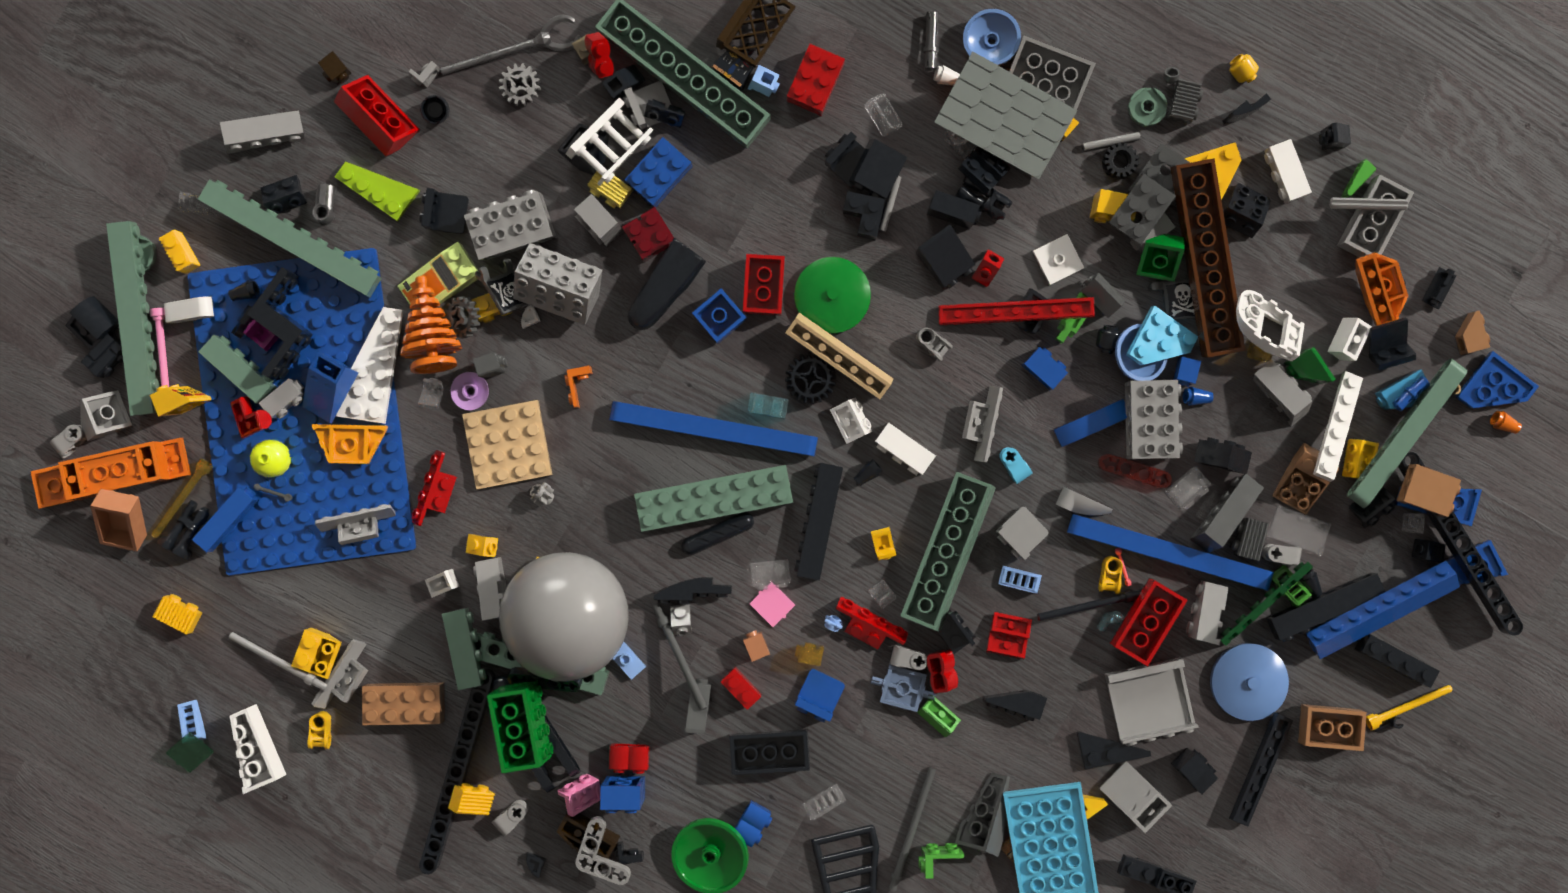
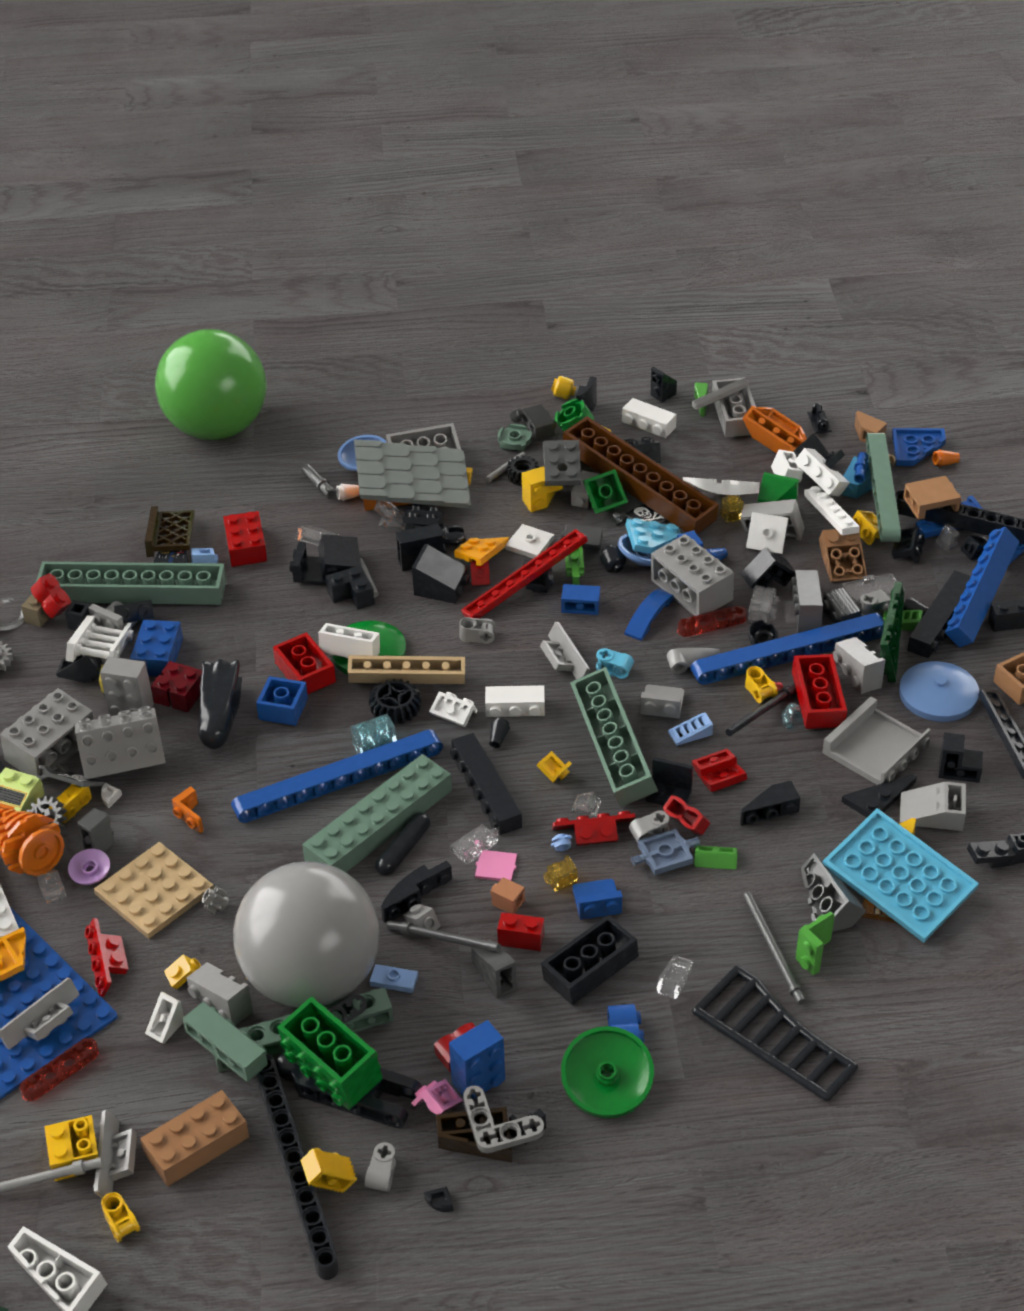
camera: 40 degrees left, 45 degrees down
(348, 571) = (56, 1066): none -> clear red beam
(810, 296) = (348, 641): none -> white brick
(1004, 245) = (480, 549): none -> light orange wing
(1158, 523) = (762, 632): none -> black hair
(1214, 130) = (572, 413): none -> green brick
(1262, 408) = (767, 532): none -> white plate
(1368, 361) = (813, 465): none -> white arch

